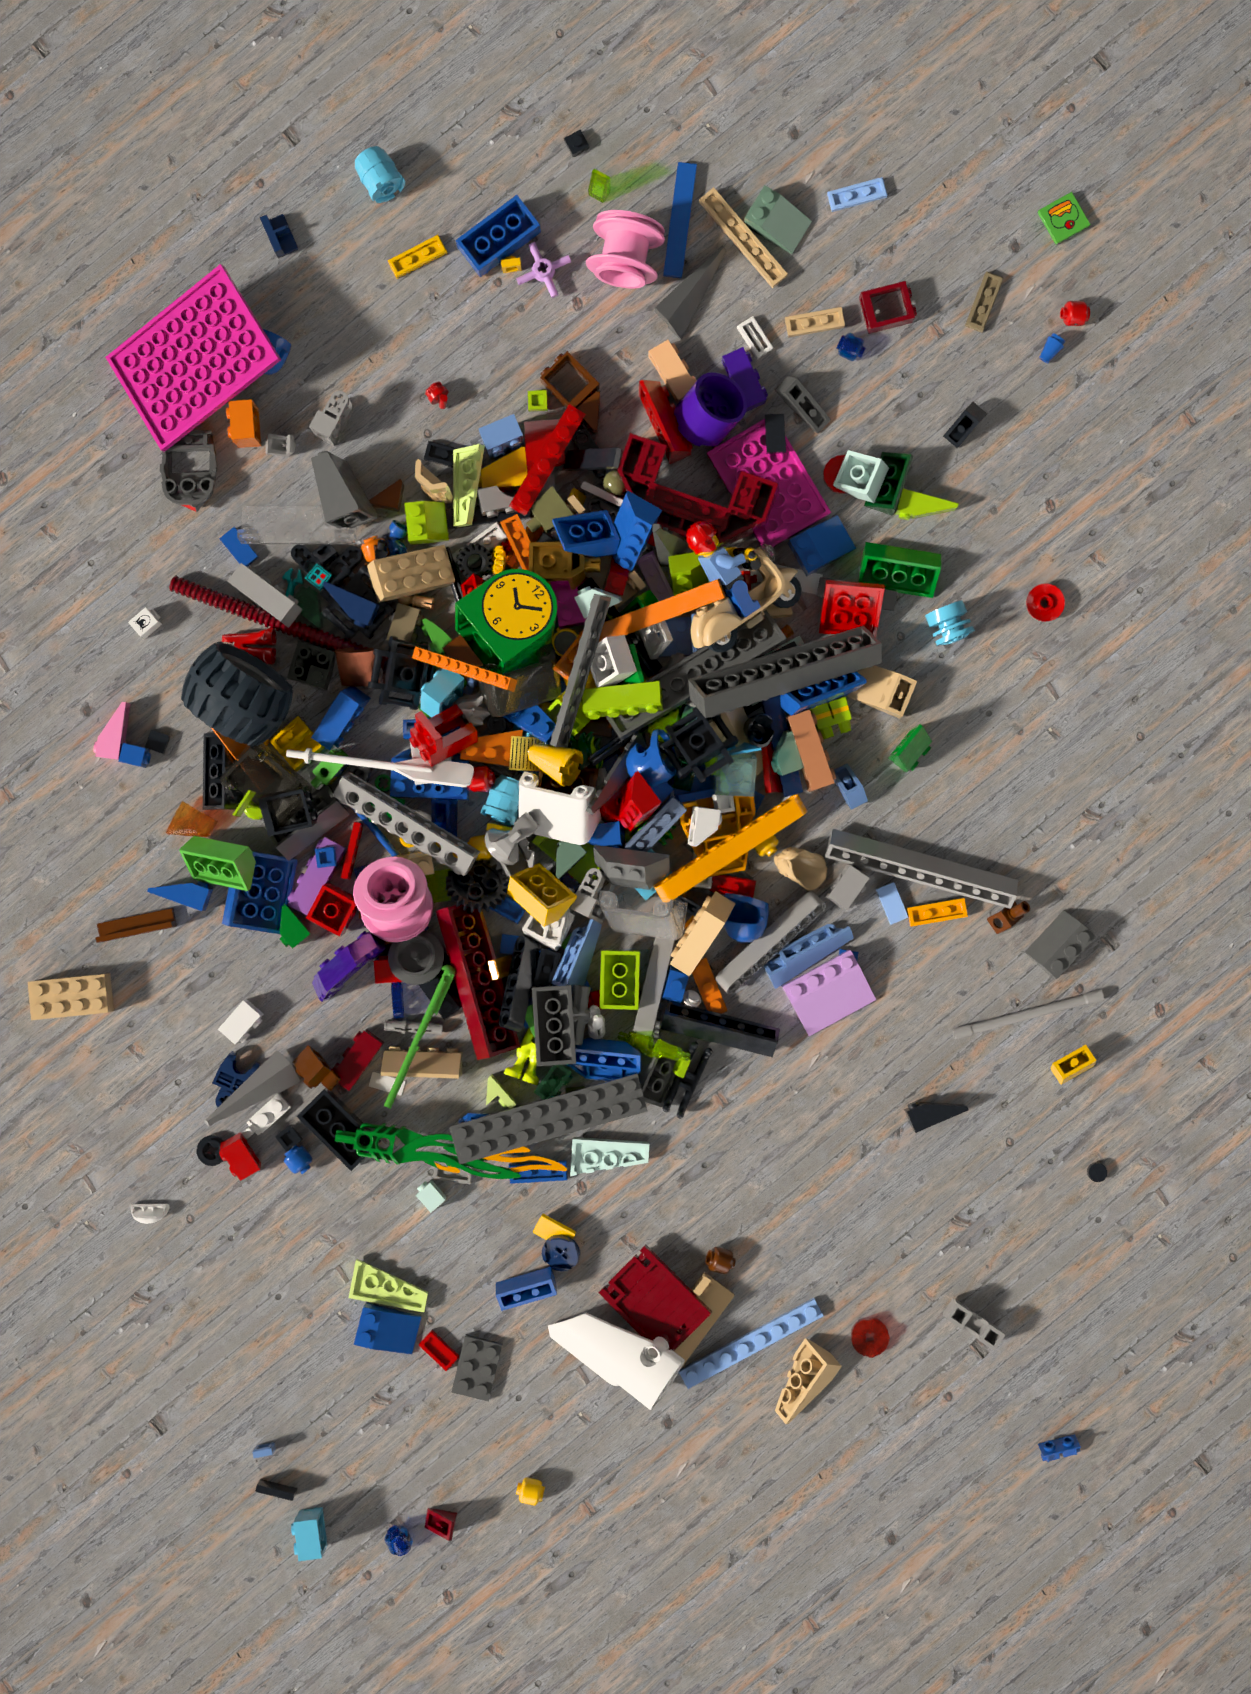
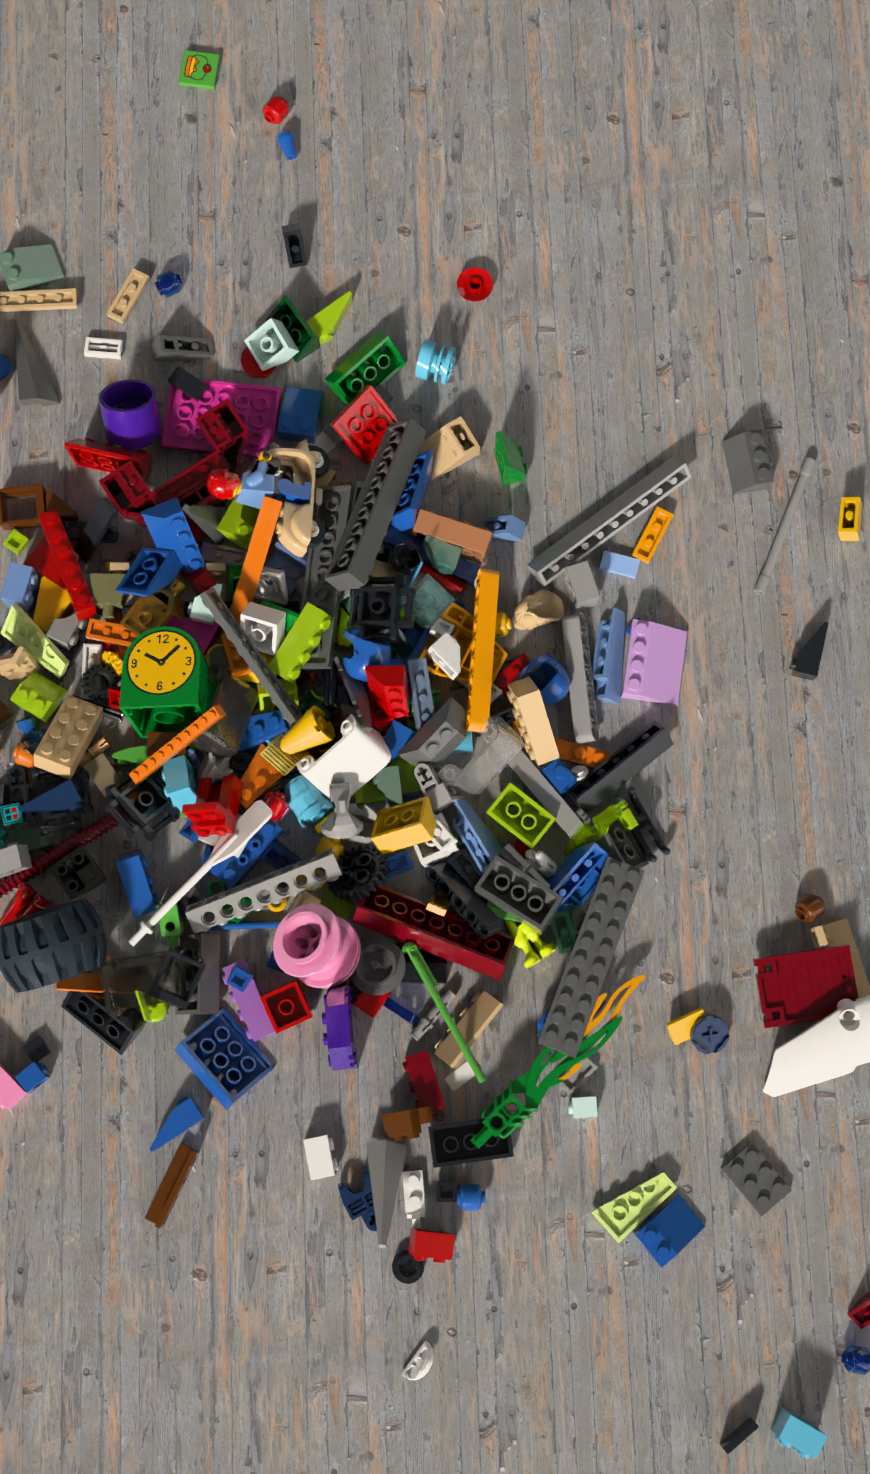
camera: 55 degrees left, 10 degrees down
(70, 996) = (187, 1288): tan brick -> none
(191, 822) = (124, 1072): clear orange slope -> none
(219, 862) = (175, 1070): bright green slope -> none
(264, 1450) = (696, 1419): medium blue tile -> none
(291, 928) = (274, 1053): green slope -> none
(295, 737) = (122, 929): yellow slope -> none
(352, 850) = (251, 955): red tile -> none
(355, 666) = (106, 838): copper slope -> none
(439, 1350) = (718, 1200): red tile -> none
(495, 1089) = (534, 986): yellowish green slope -> none
(508, 943) = (423, 886): blue tile -> none
(526, 1288) = (719, 1085): blue brick -> none
(539, 1175) = (631, 1003): blue tile -> none
(601, 493) = (129, 545): white tile -> none
(601, 1154) = (650, 942): light aqua wing -> none
(613, 483) = (128, 530): olive piece -> none
(672, 369) = (76, 424): light nougat brick -> none
(739, 369) = (114, 371): dark purple brick -> none
(840, 716) = (438, 497): lime hips -> none
(857, 194) = (59, 198): light blue tile -> none
(868, 312) = (156, 253): dark red window -> none
(984, 301) = (214, 167): dark tan tile -> none
(1009, 916) = (697, 483): reddish brown bracket -> none

